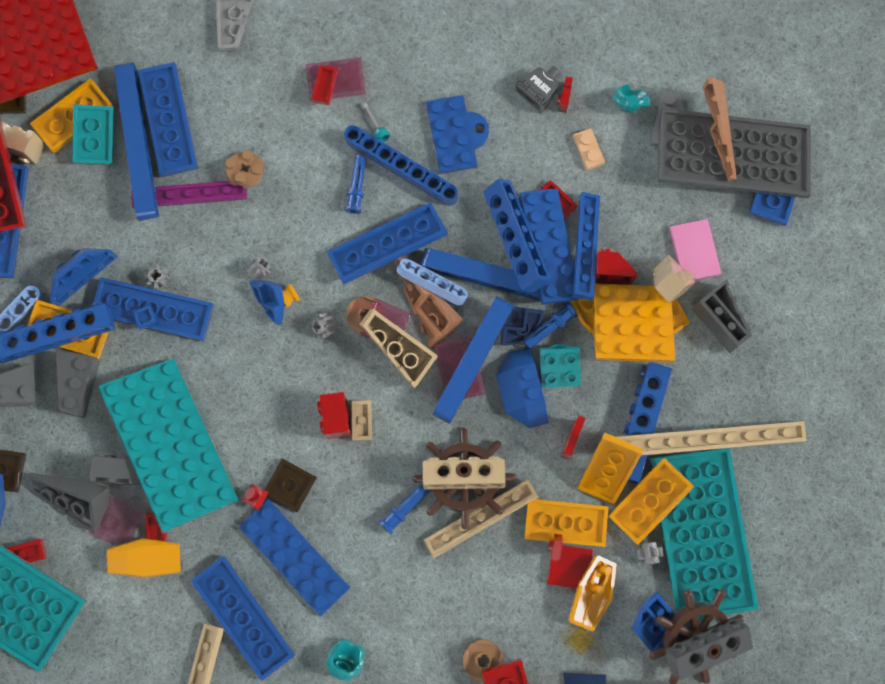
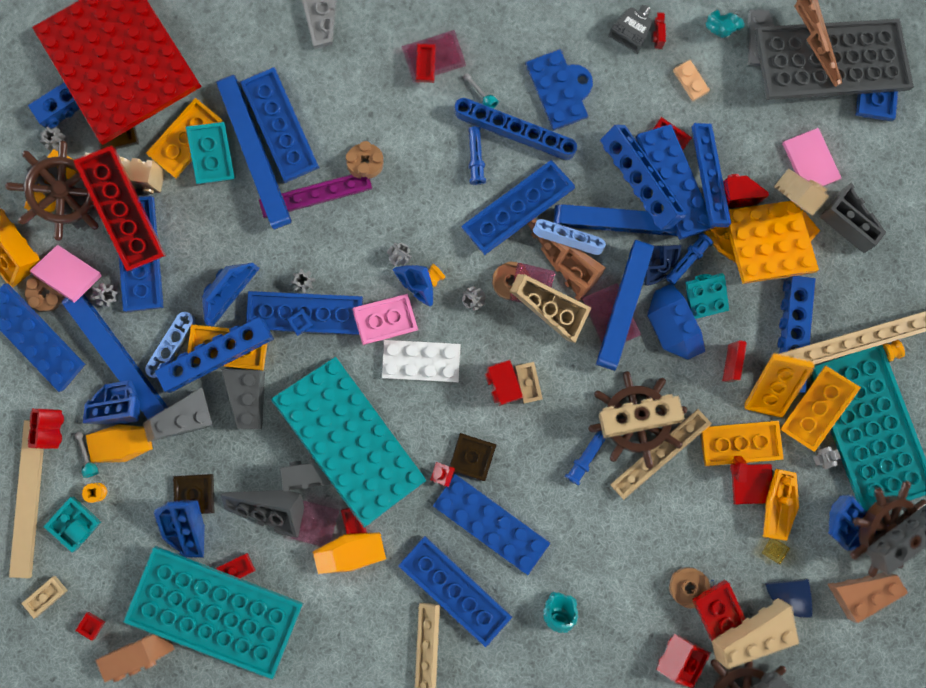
camera: 10 degrees left, 5 degrees up
(230, 330) = (385, 319): none -> bright pink tile
(258, 379) = (421, 361): none -> white plate
(740, 457) = (894, 350): none -> light orange wheel

